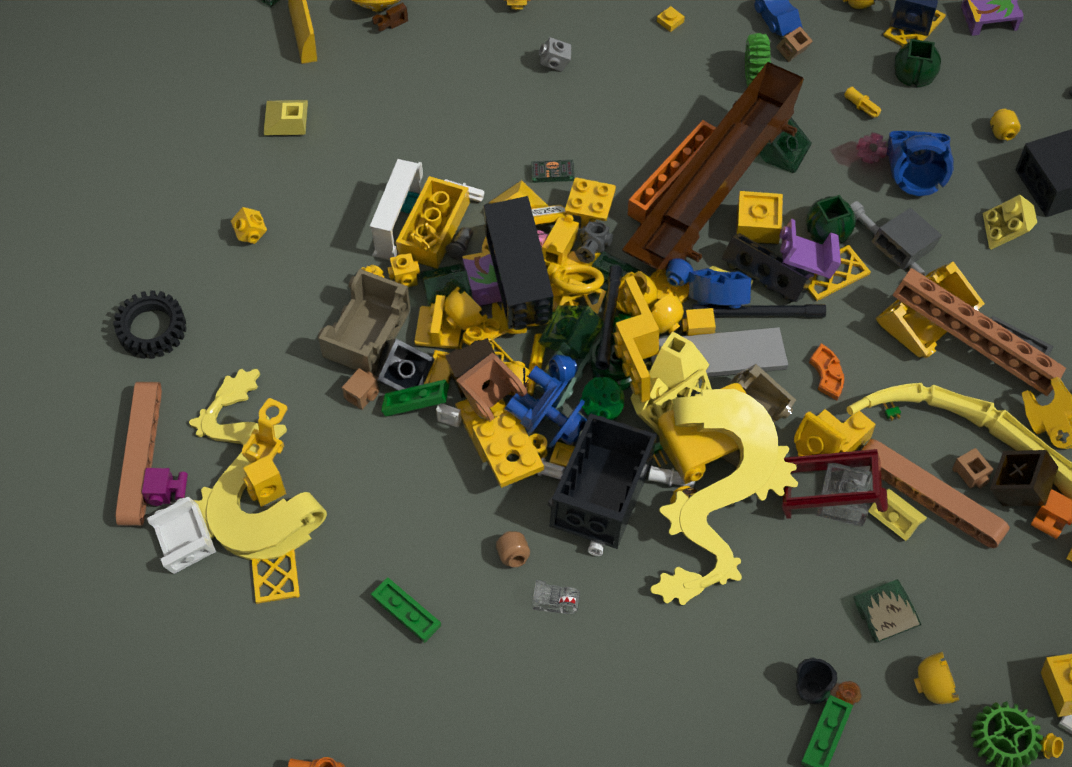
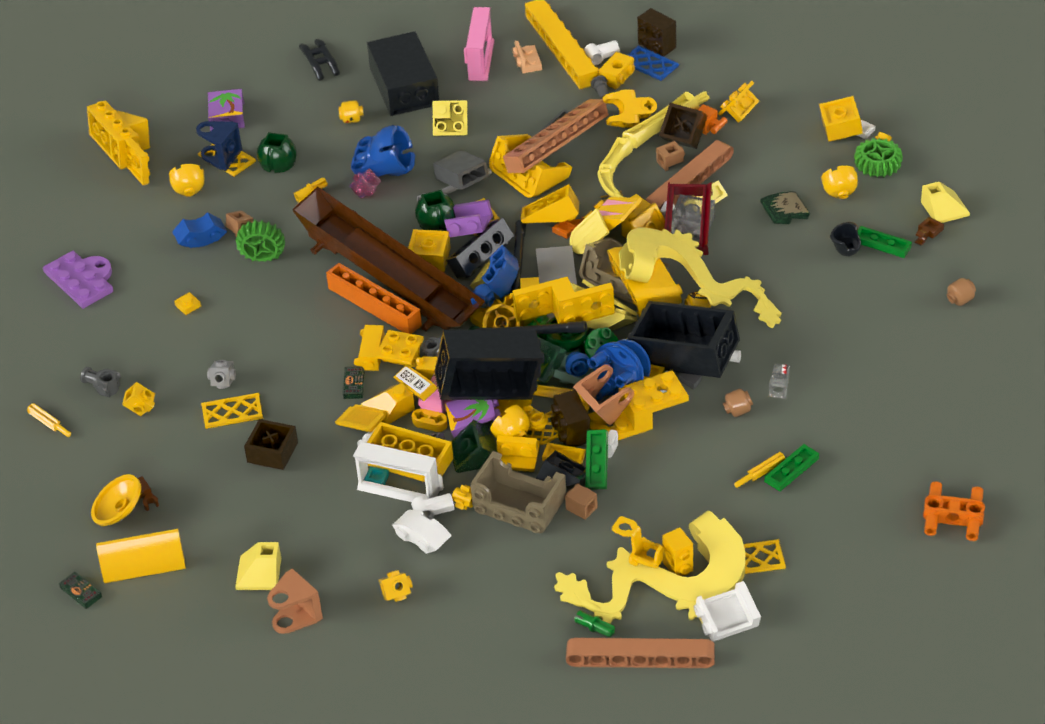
camera: 85 degrees left, 15 degrees down
(145, 303) = (500, 637): black tyre -> none
(160, 484) = (677, 627): magenta brick -> none
(185, 408) = (595, 624): none -> green axle
(232, 143) = (302, 602): none -> nougat hose
(323, 242) = (420, 530): none -> white brick
(361, 249) = (433, 505): none -> white piece
(404, 270) = (458, 473): yellow brick -> none
(408, 578) = (761, 469): none -> yellow axle
(421, 242) = (433, 440): yellow piece -> none
(450, 104) = (271, 444): none -> dark brown brick
(495, 180) = (361, 418): none -> yellow window
(519, 91) = (243, 417): none -> yellow window
(607, 174) = (371, 340): none -> yellow brick
(796, 374) = (588, 231): none -> light yellow window
(828, 393) = (615, 209): none -> yellow slope
(847, 338) = (554, 207): none -> yellow slope

